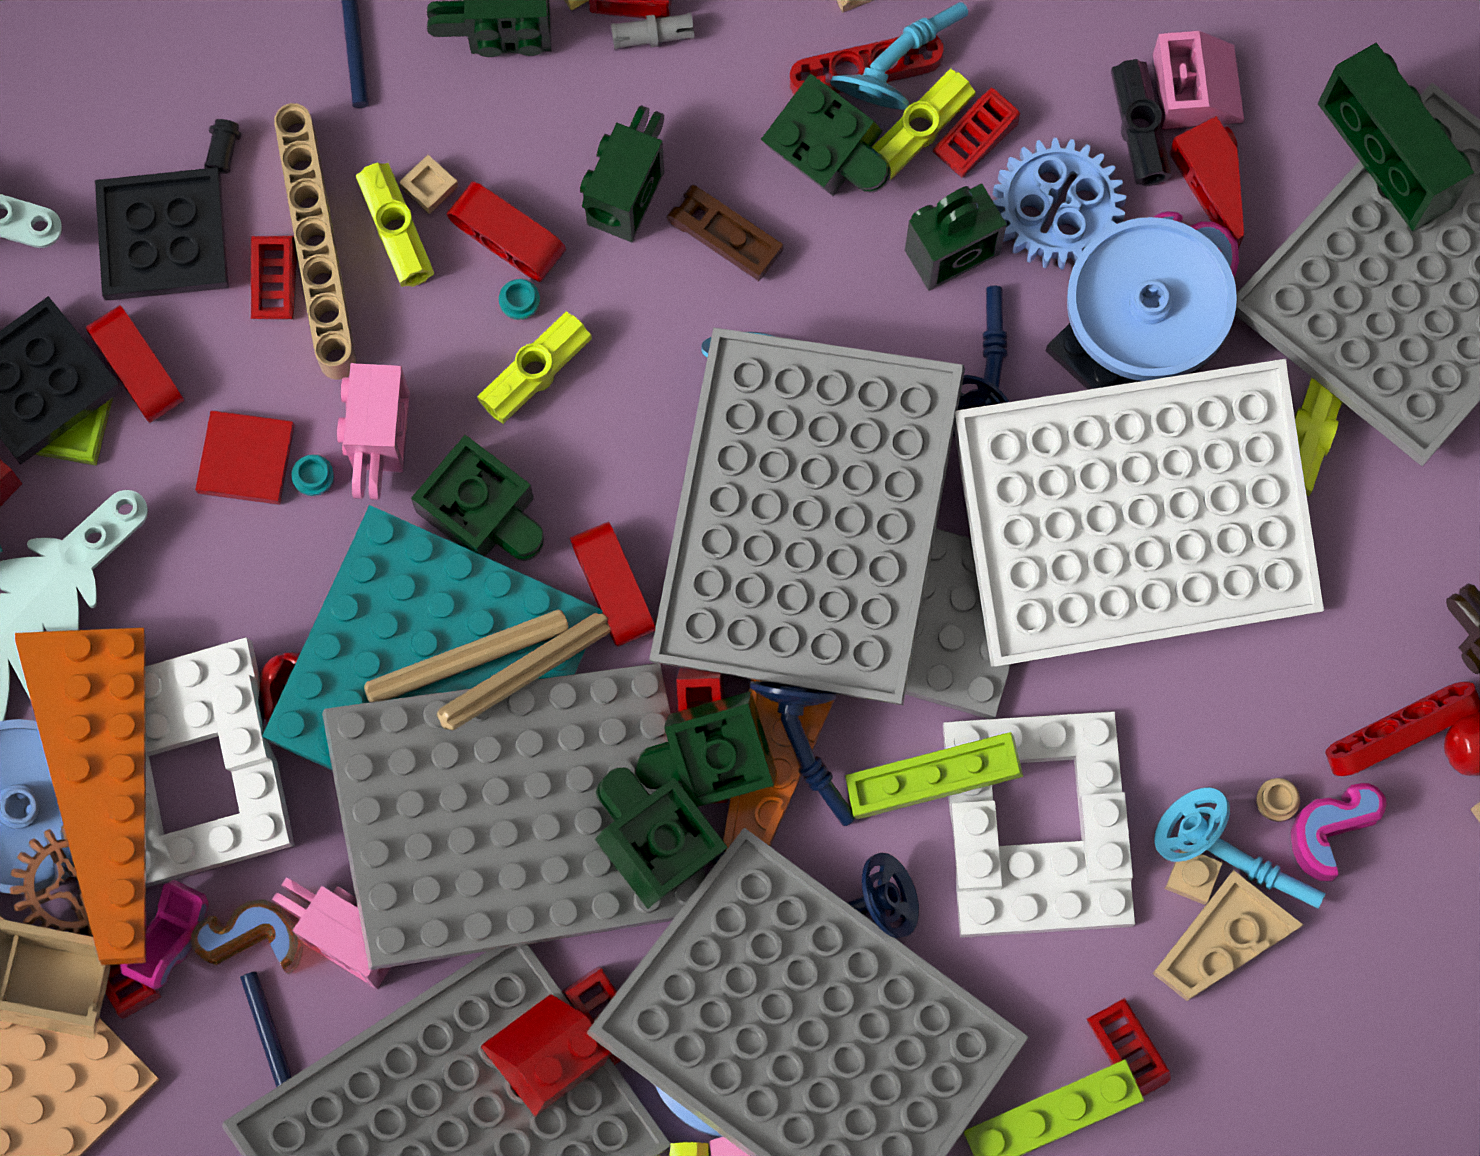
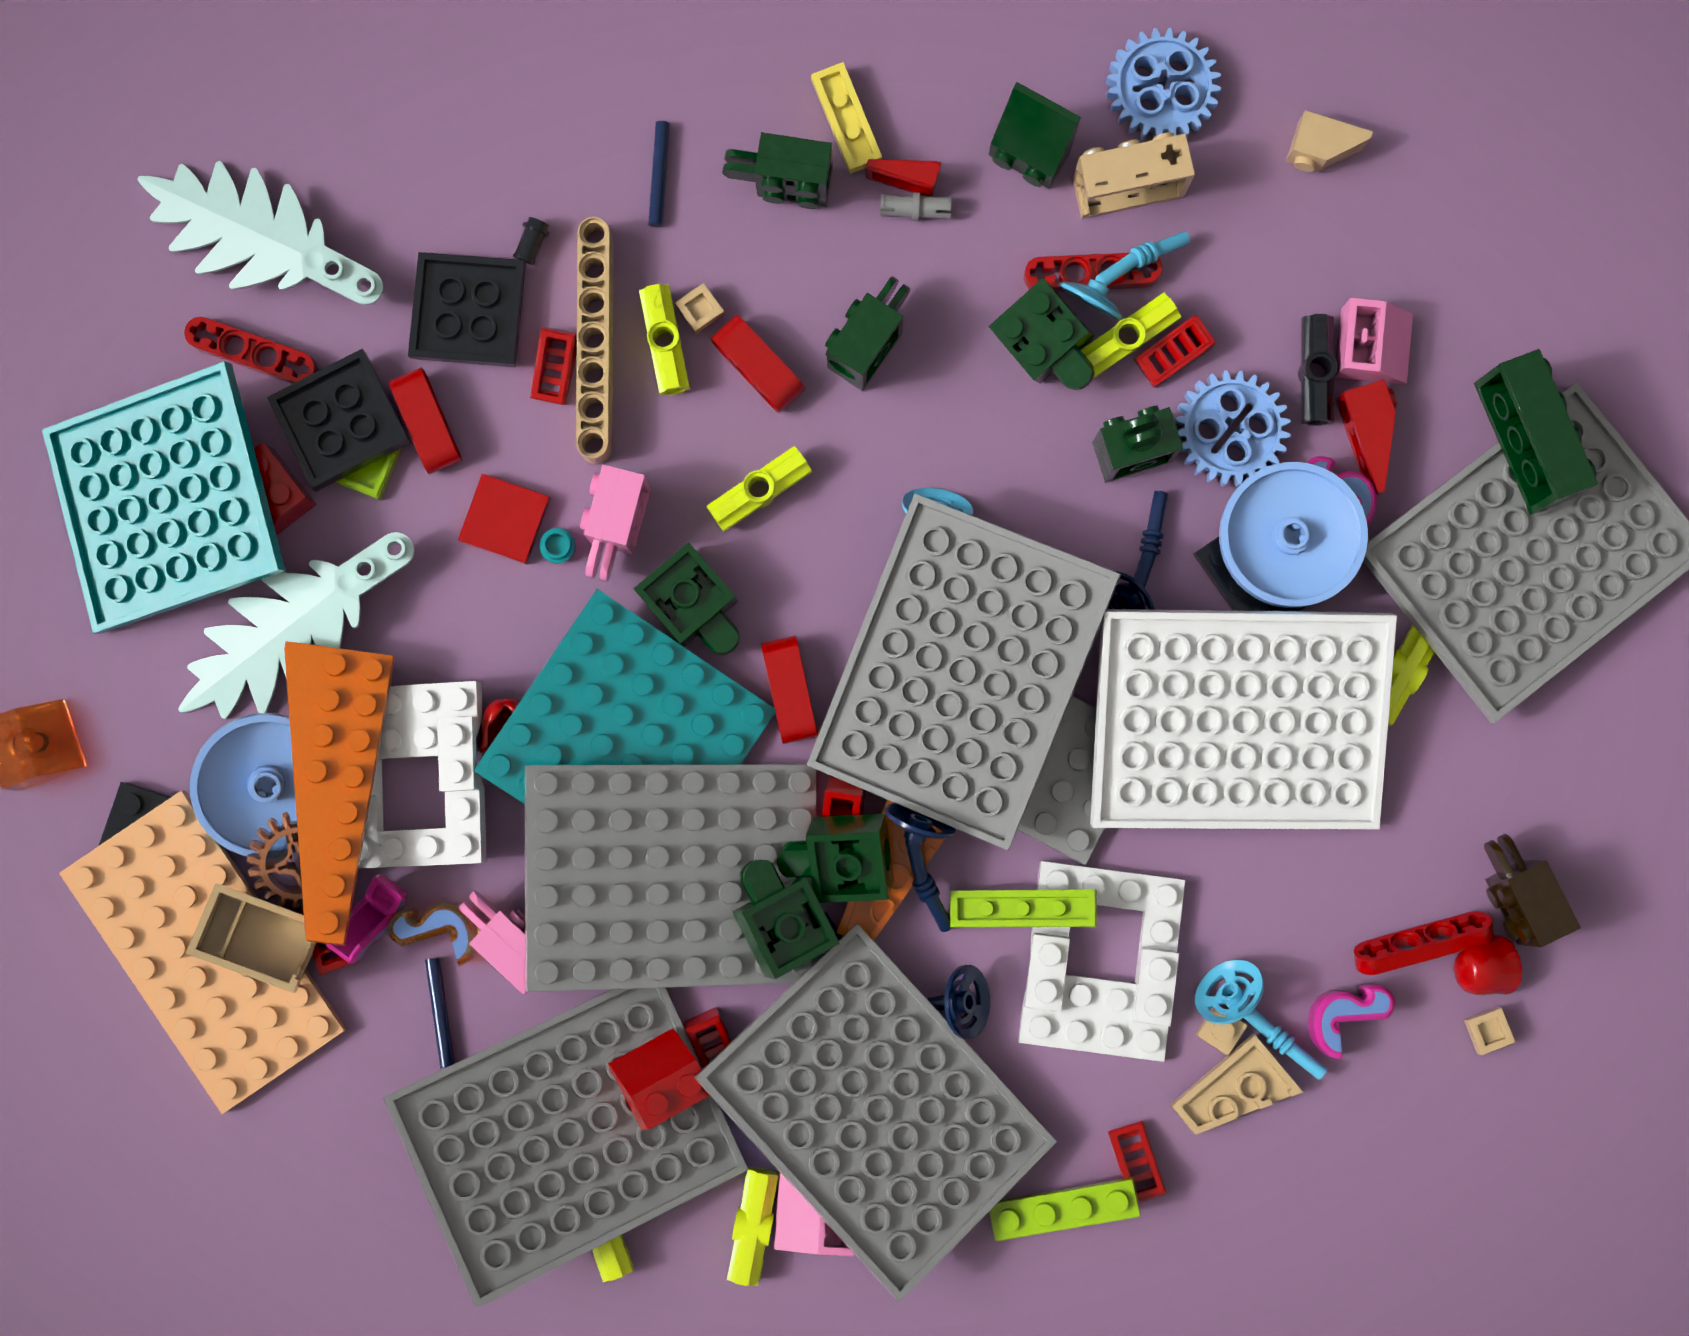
camera: 15 degrees right, 10 degrees up
(466, 657) = (654, 734): tan axle -> none
(519, 299) = (757, 425): teal plate -> none
(523, 671) = (698, 759): tan axle -> none
(726, 232) = (943, 400): reddish brown plate -> none
(1278, 799) = (1305, 980): tan plate -> none

